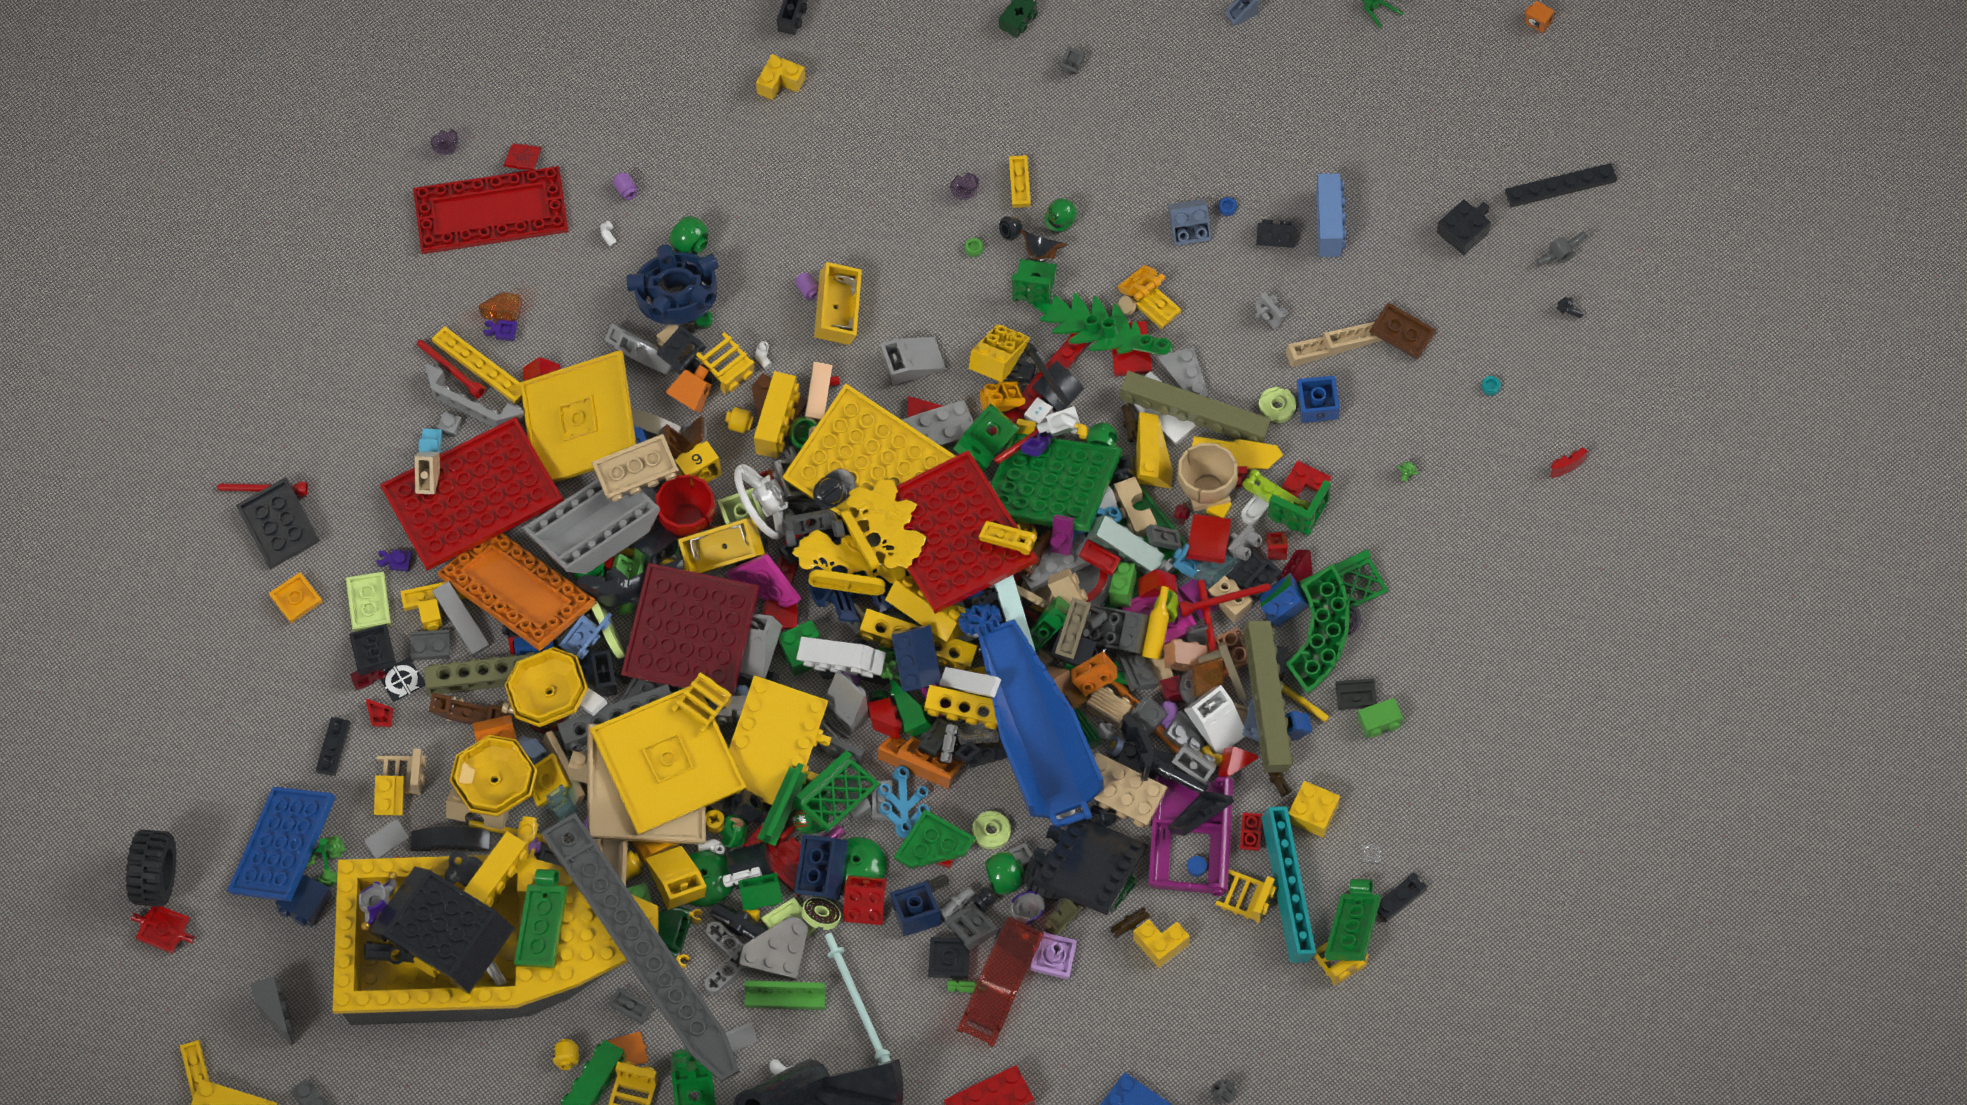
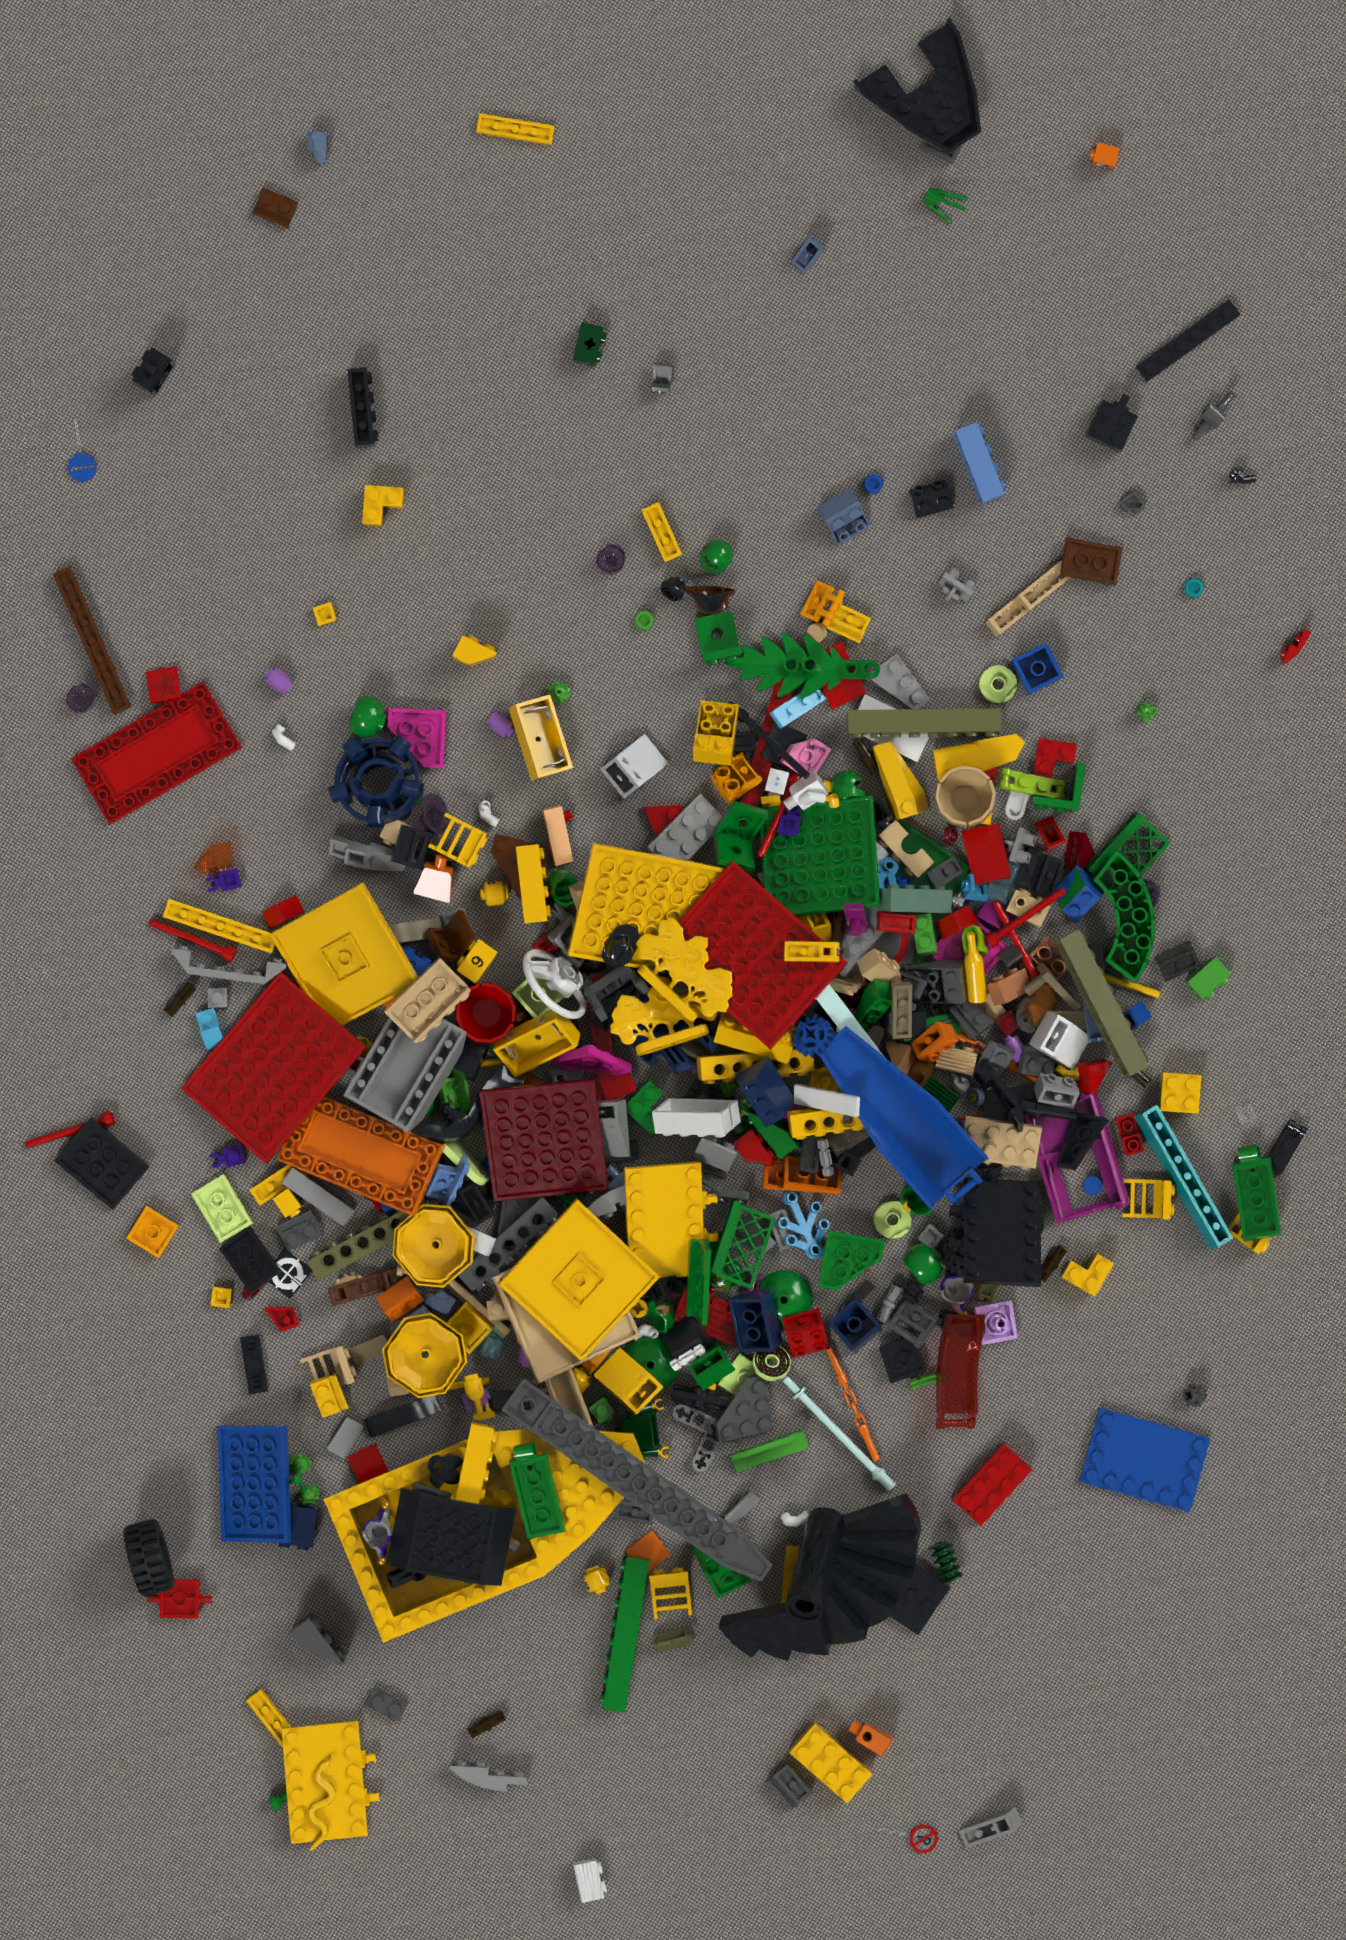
camera: 20 degrees left, 25 degrees up
(331, 677) = (221, 1297): none -> yellow tile
(414, 413) = (180, 999): none -> dark brown axle
(426, 472) = (223, 1064): tan slope -> none
(439, 769) = (368, 1350): none -> dark tan slope
(477, 102) = (92, 640): none -> reddish brown plate
(690, 149) = (324, 614): none -> yellow tile
(711, 691) = (591, 1202): yellow plate -> none
(712, 335) = (433, 814): none -> clear purple piece
(735, 270) = (423, 731): none -> dark pink plate
(808, 216) = (472, 653): none -> yellow slope
(871, 277) = (559, 692): none -> bright green plant
(884, 1009) = (862, 1428): none -> orange piece
(1018, 816) = (913, 1203): none -> green hair
(1079, 397) = (808, 754): none -> bright pink plate
(1083, 358) = (795, 708): none -> medium azure tile
(1460, 297) = (1133, 502): none -> dark grey tile

